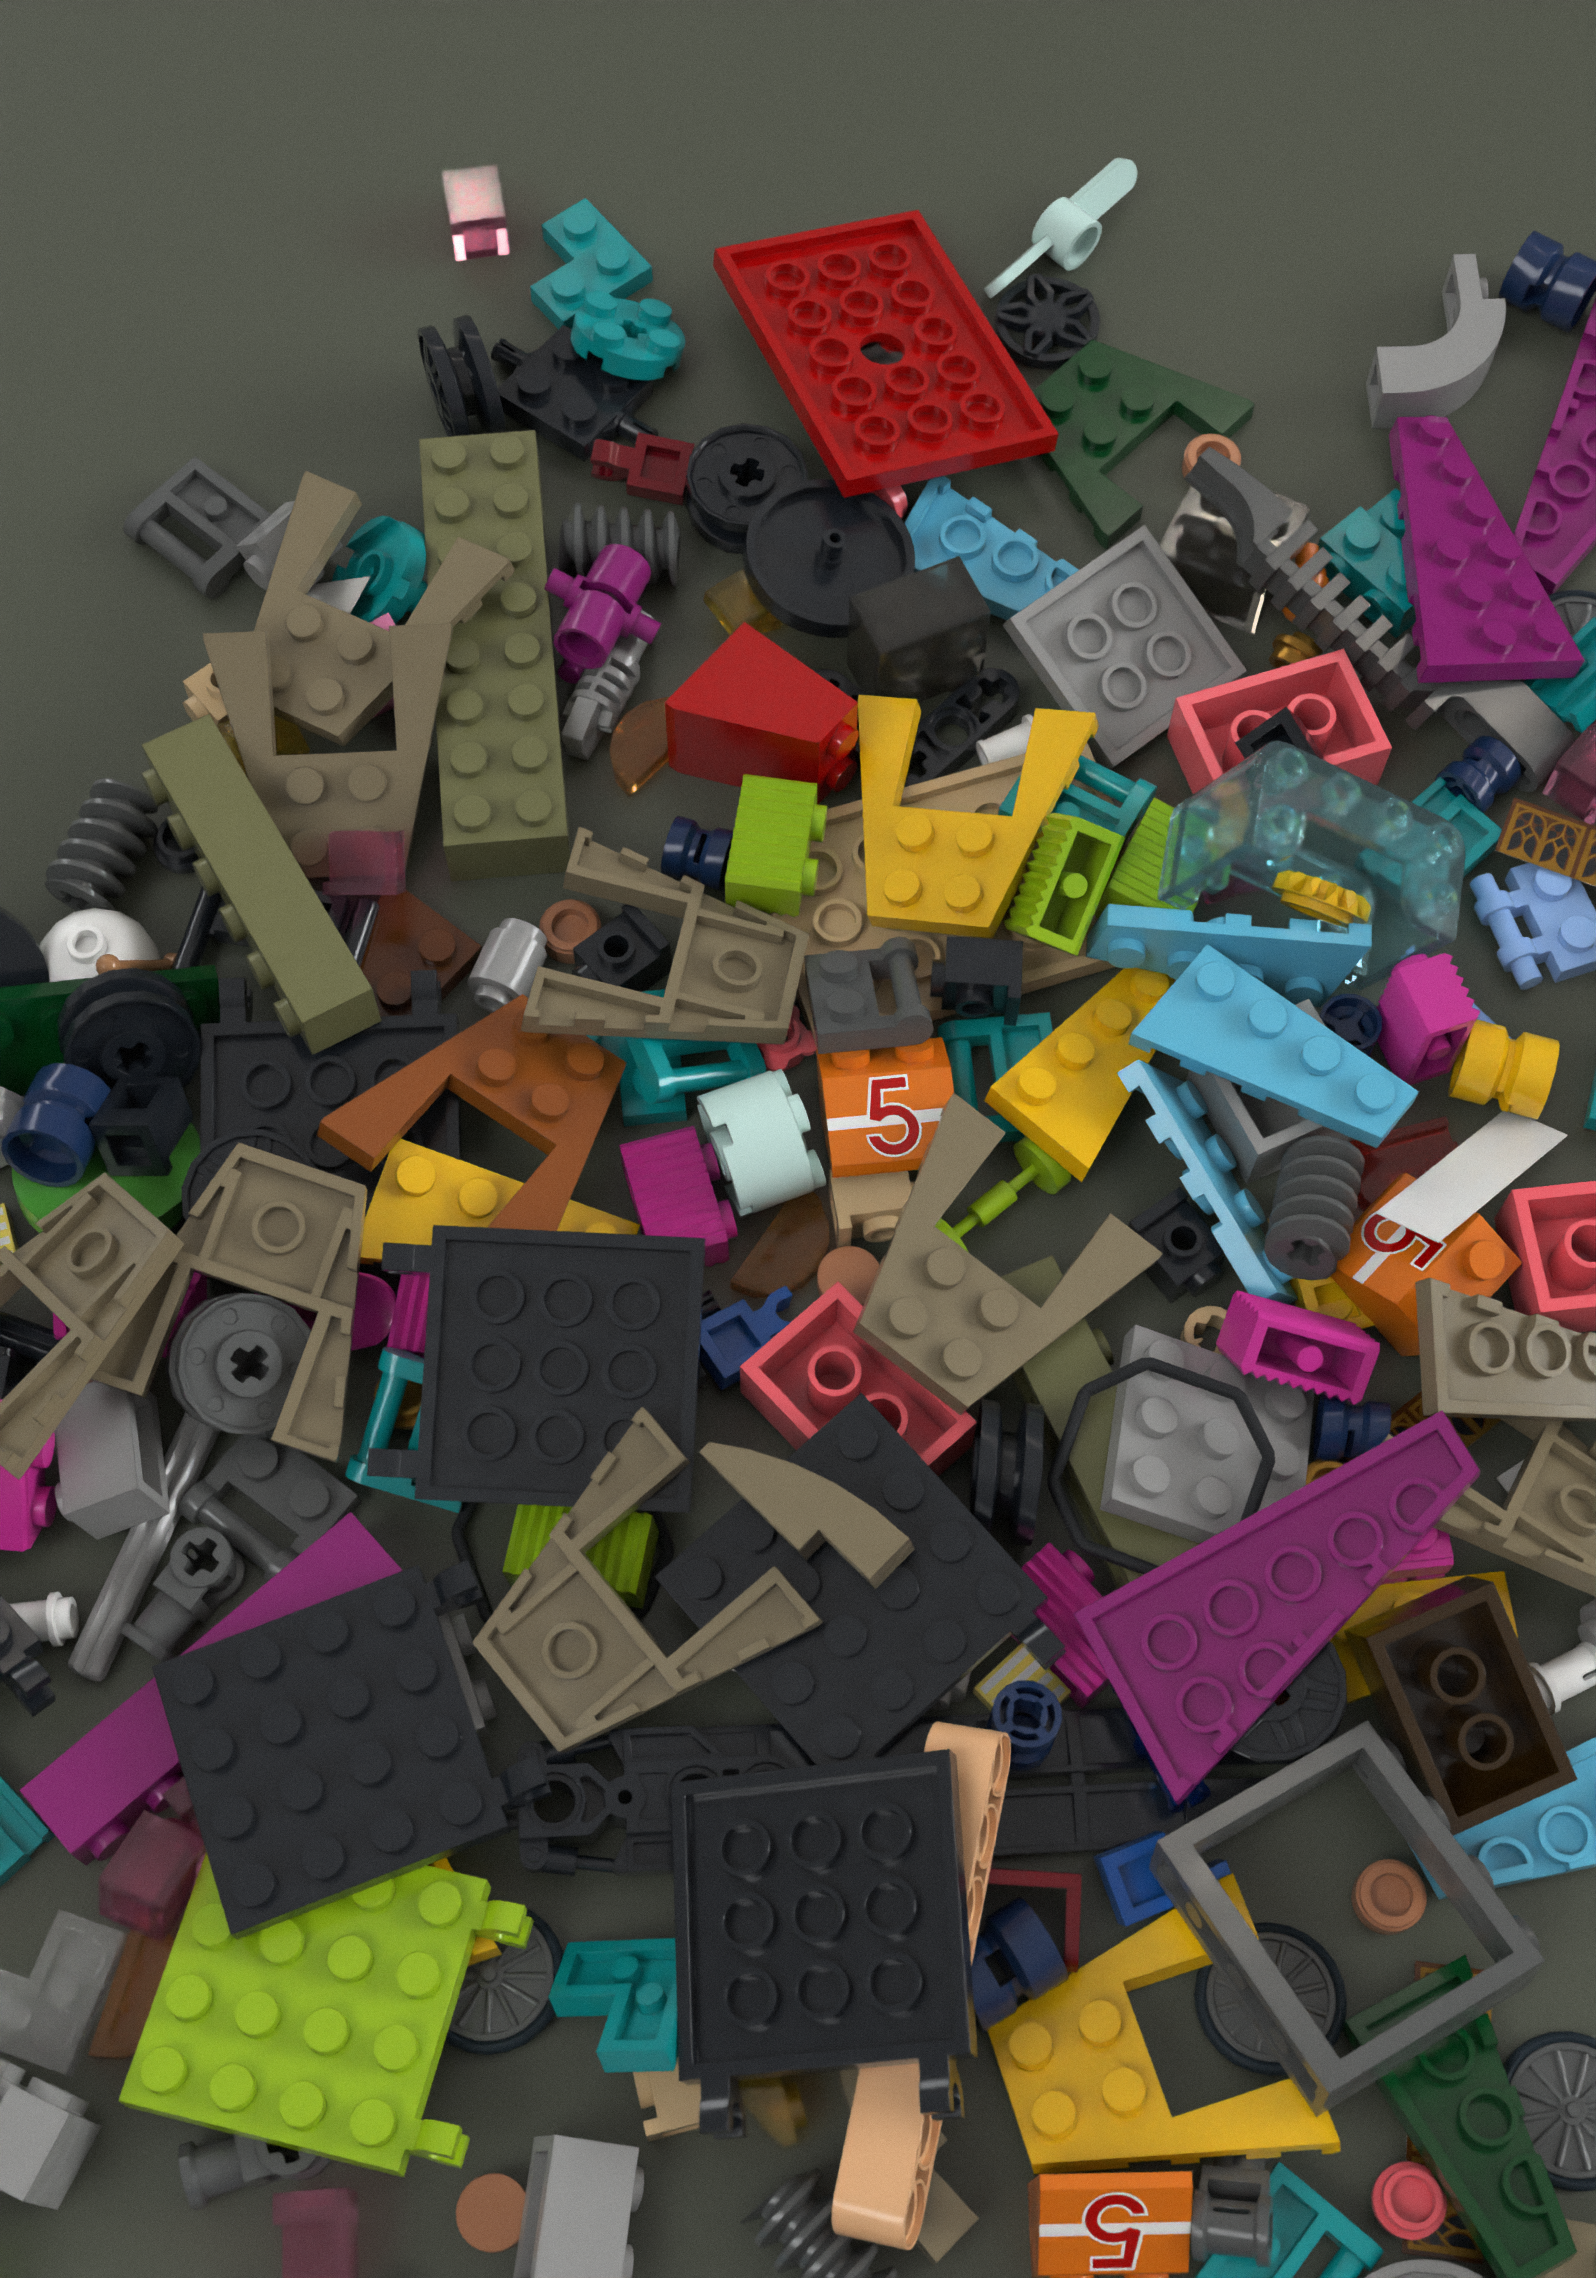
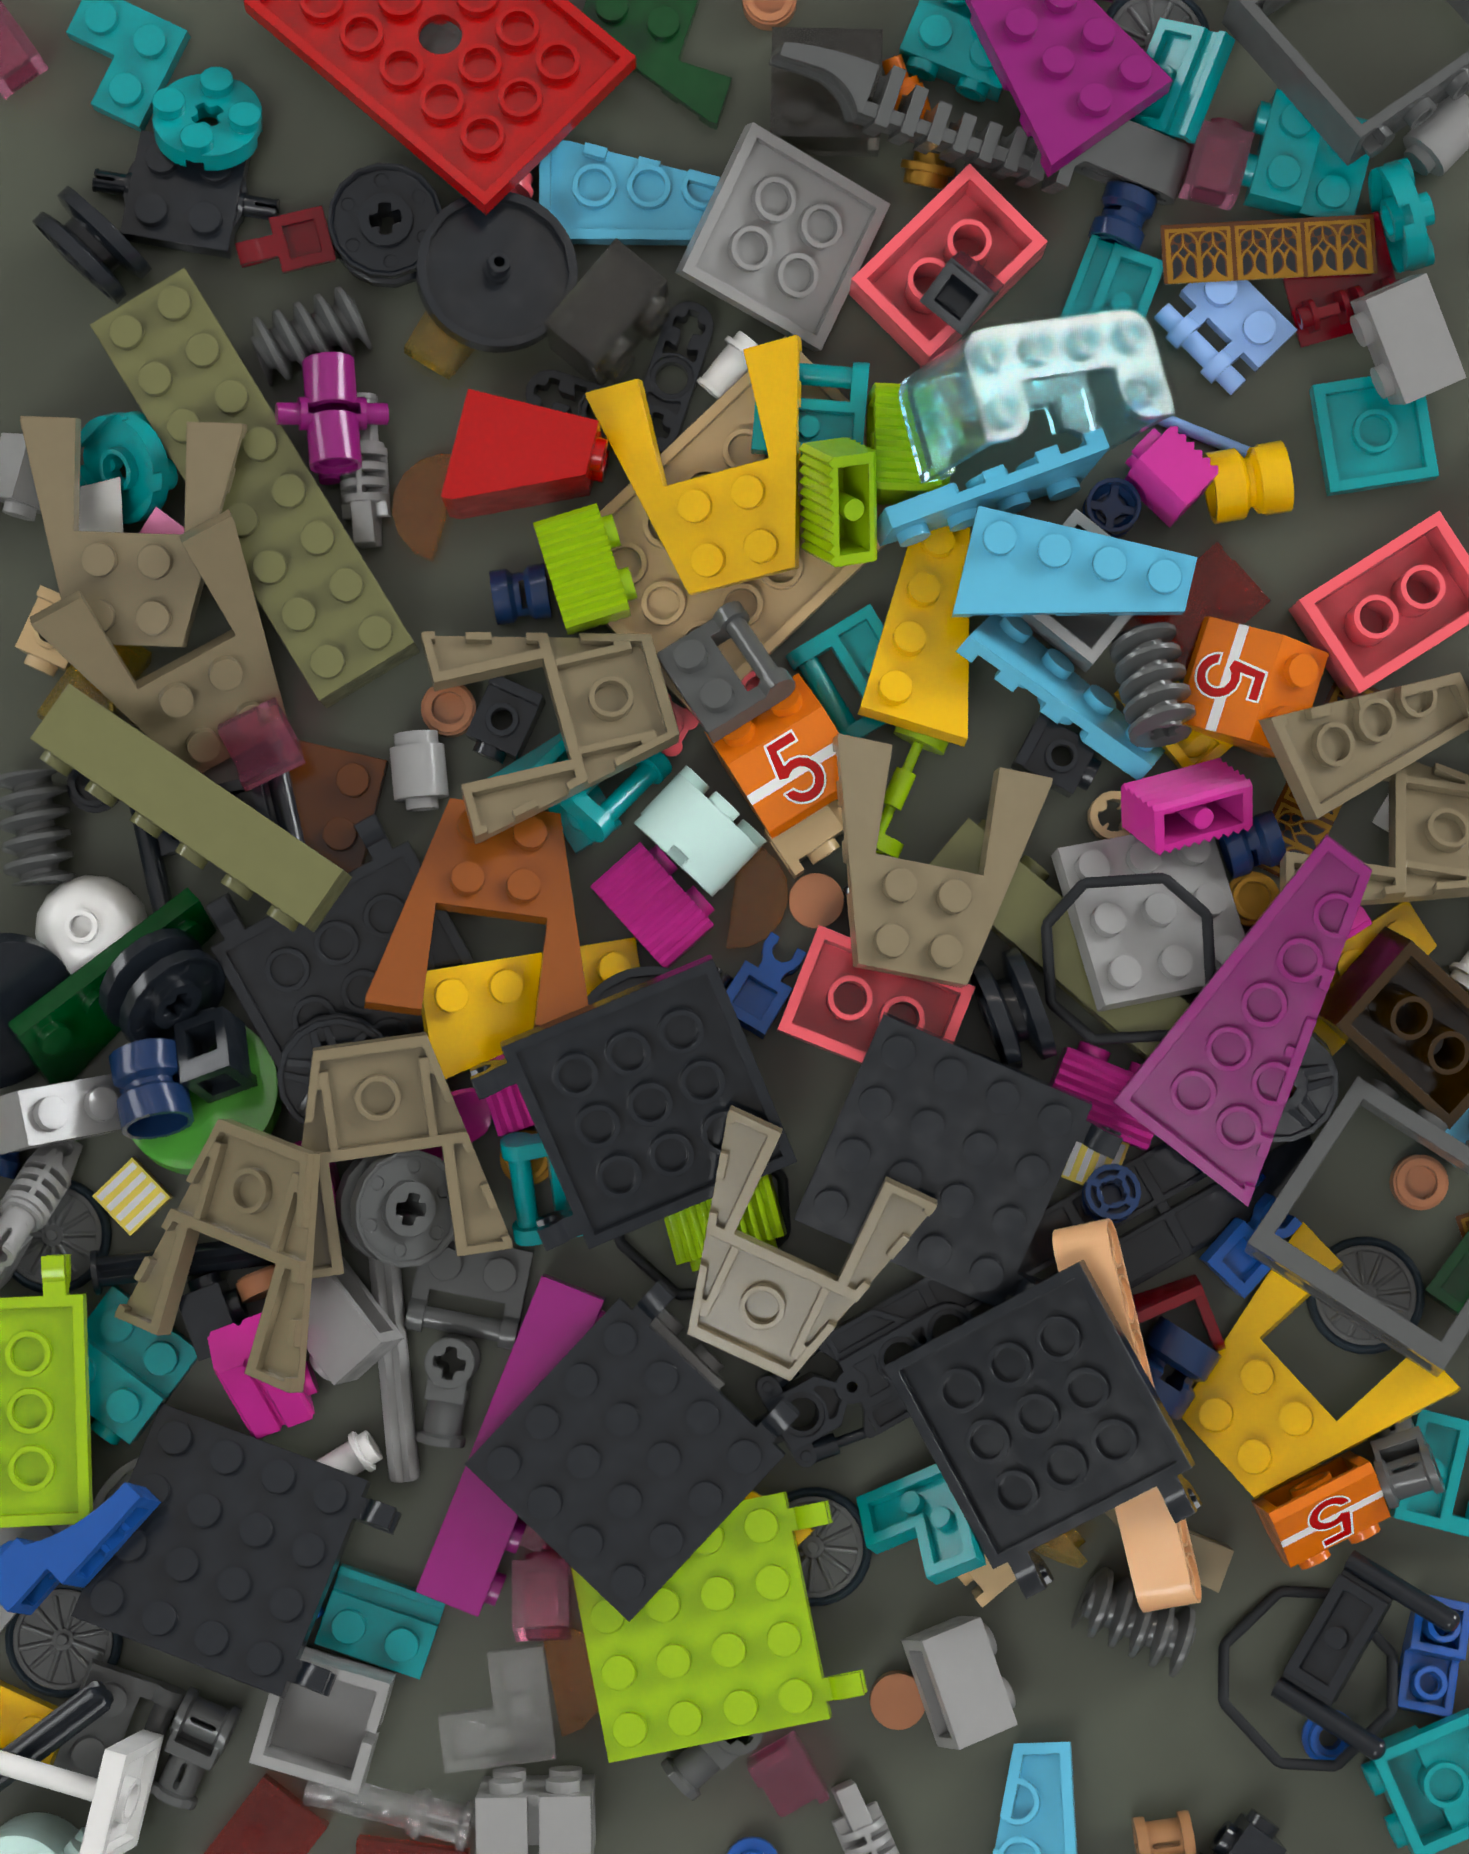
camera: 25 degrees left, 20 degrees up
(111, 962) = (114, 939): medium nougat hinge -> none
(812, 1510) = (891, 1128): dark tan slope -> none
(979, 977) = (805, 610): black brick -> none
(1321, 899) = (1058, 418): yellow gear -> none
(1471, 1175) = (1261, 595): white sticker -> none

